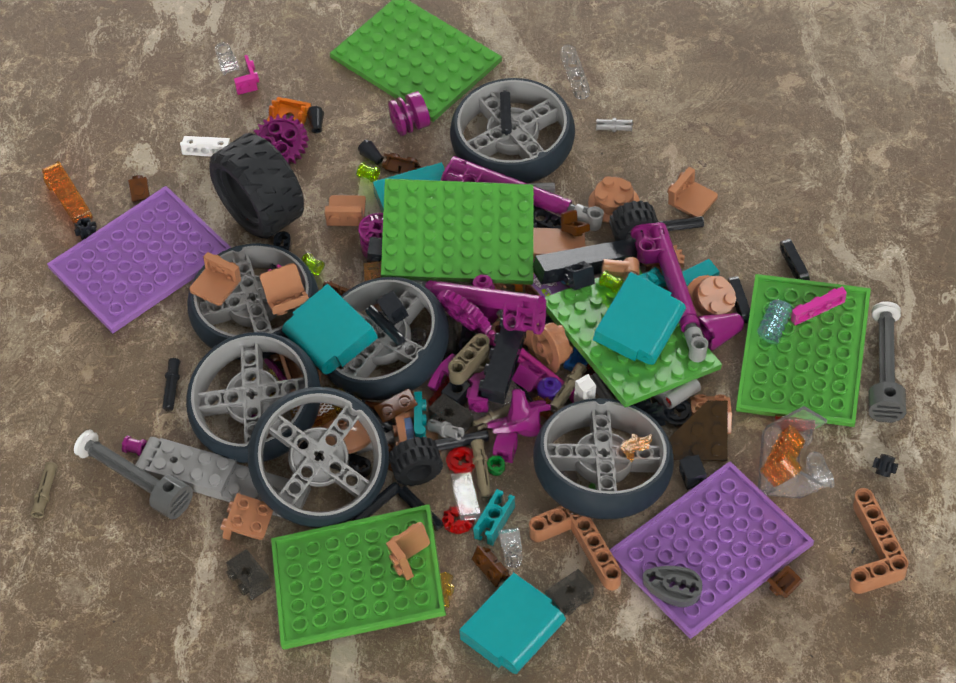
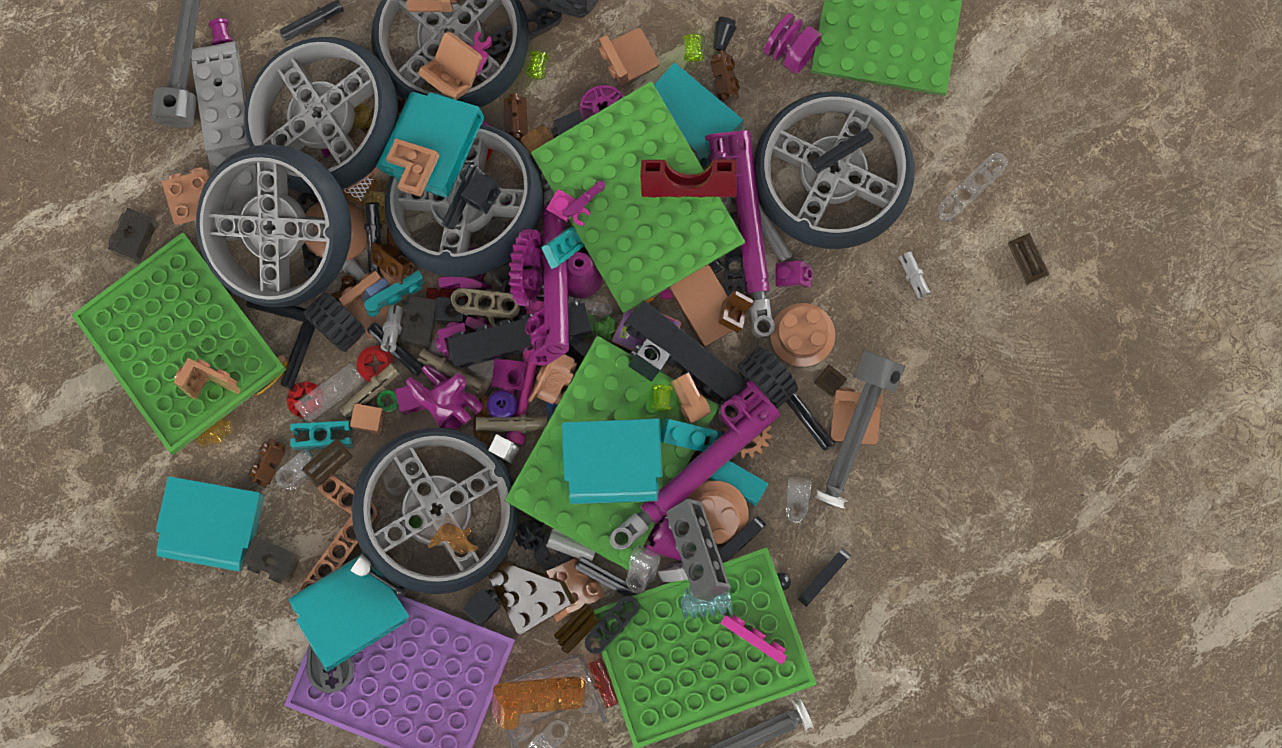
camera: 65 degrees right, 25 degrees up
(342, 331) = (418, 164): none -> nougat plate
(437, 271) = (562, 201): none -> dark pink plate
(439, 252) = (583, 200): none -> magenta piece
(466, 279) = (562, 247): none -> teal tile
(483, 168) = (662, 181): none -> dark red arch
(503, 479) = (367, 419): none -> nougat panel
(523, 528) = (333, 469): none -> dark brown tile
(568, 186) = (793, 274): none -> magenta bracket
(618, 516) = (363, 567): none -> hinge
(645, 549) = (346, 614): none -> teal piece
(646, 65) = (1044, 271): none -> dark brown tile
(657, 200) = (830, 380): none -> dark brown tile
(674, 157) = (878, 374): none -> dark grey piece
(706, 297) = (698, 550): none -> dark grey brick
(717, 384) = (604, 576): none -> black axle
(724, 353) = (642, 568): none -> clear piece
(729, 252) = (798, 496): none -> clear piece
(739, 338) = (672, 572): none -> light grey beam
(740, 428) = (576, 628): none -> dark brown tile
(754, 401) = (602, 624): none -> black beam

